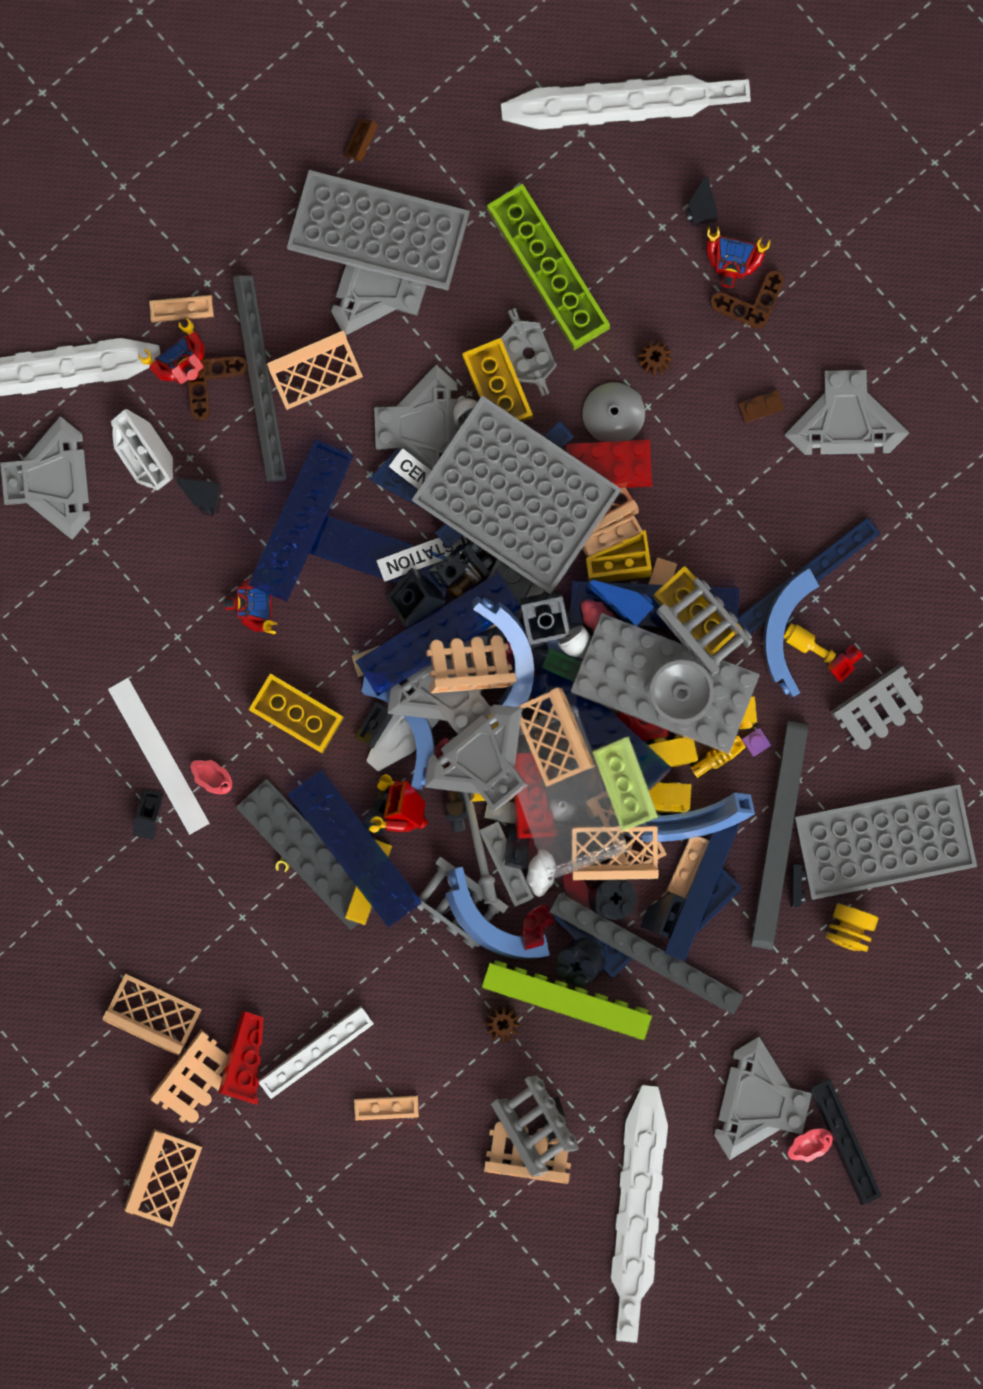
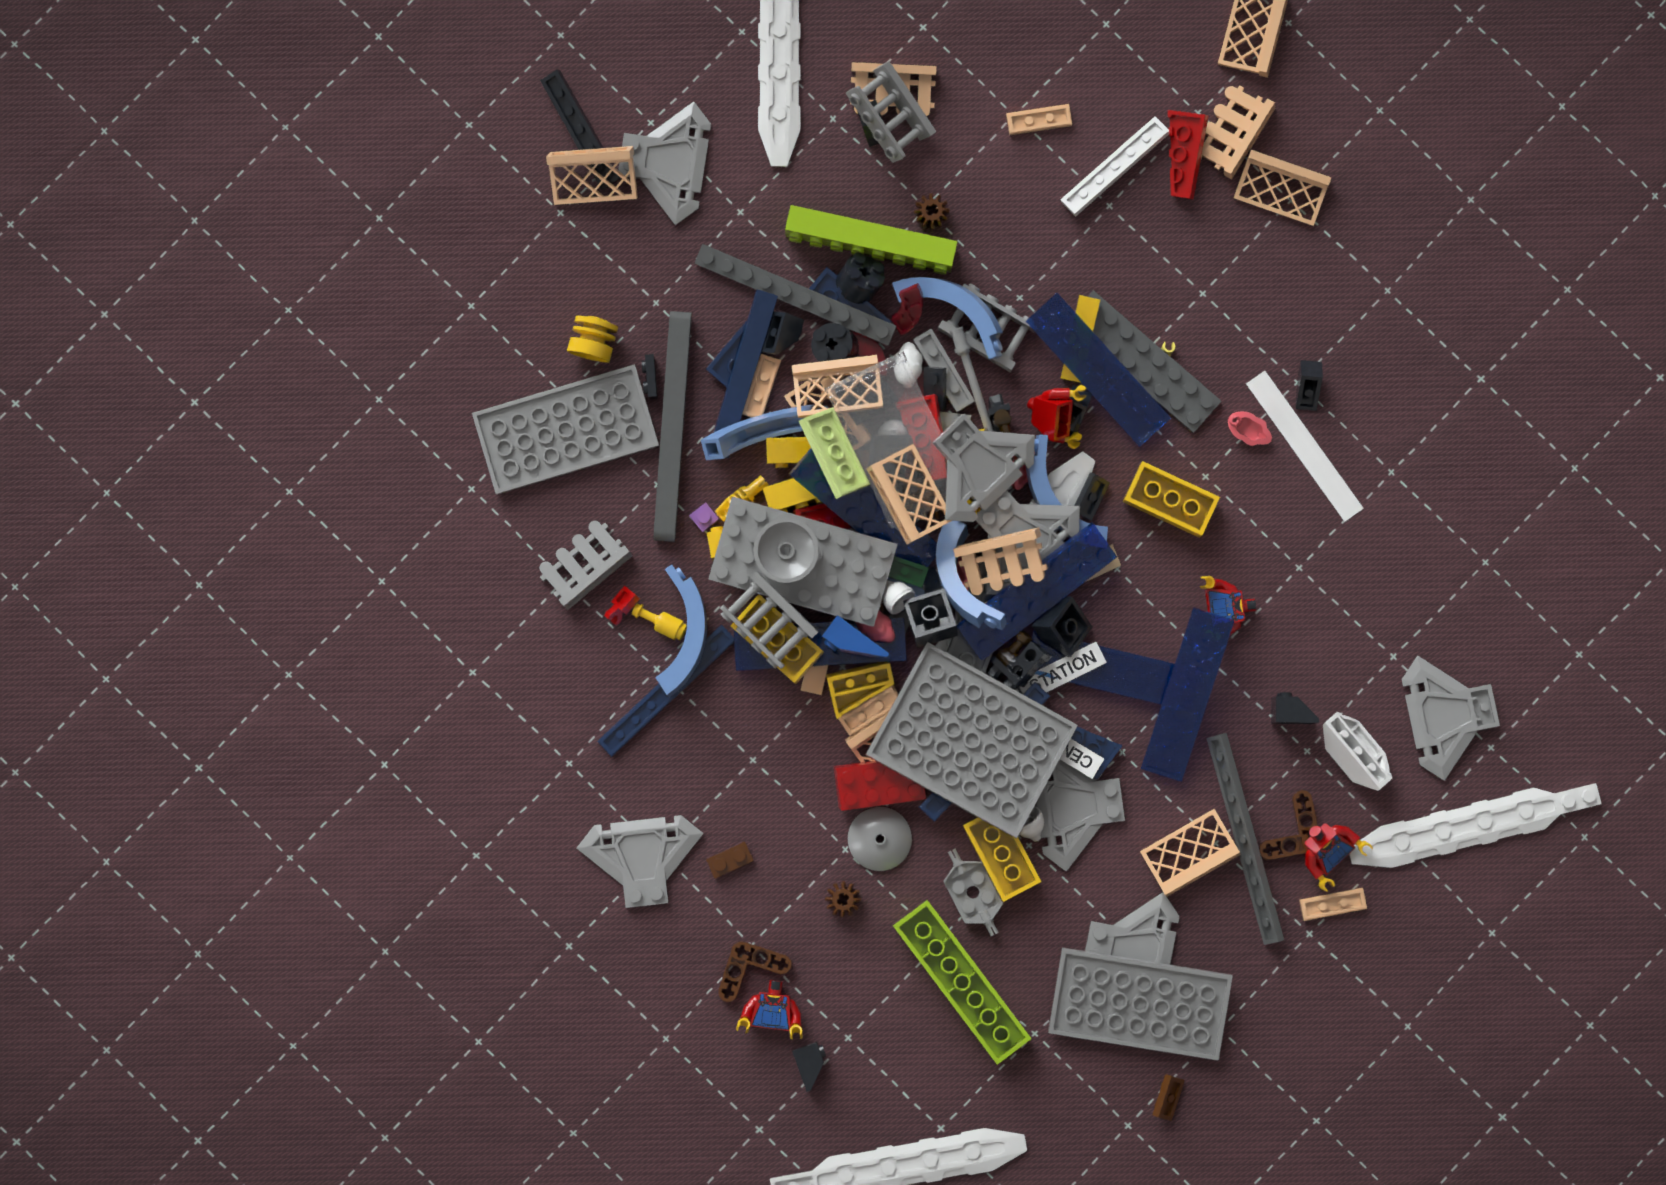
camera: 175 degrees right, 0 degrees up
(810, 1145) = (614, 123): coral arm -> none
(839, 1110) = (586, 158): none -> light nougat fence

